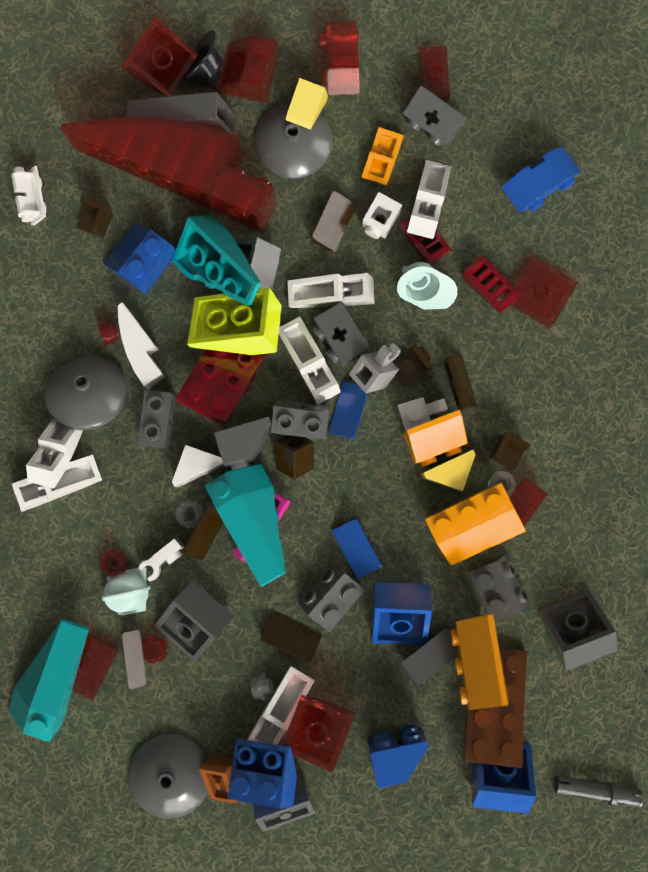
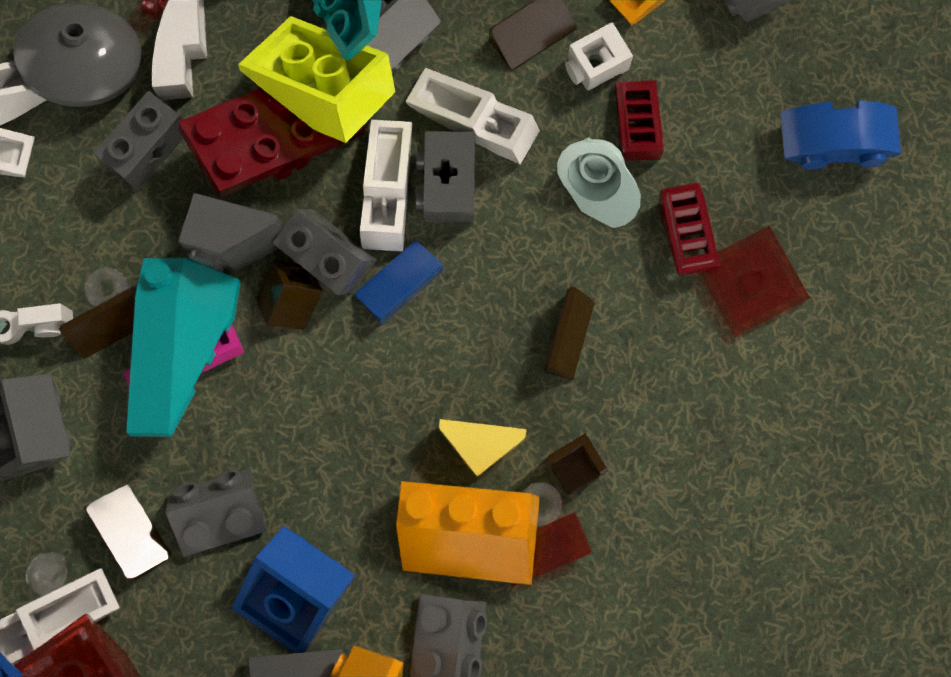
camera: 30 degrees right, 5 degrees down
(194, 464) = (147, 227): white slope -> none
(356, 548) = (292, 468): blue slope -> none
(376, 369) = (464, 246): light grey brick -> none
(412, 364) = (517, 271): dark brown bracket -> none
(417, 412) = (486, 338): white plate -> none
(429, 199) = (674, 73): white slope -> none
(435, 438) = (485, 384): light orange slope -> none

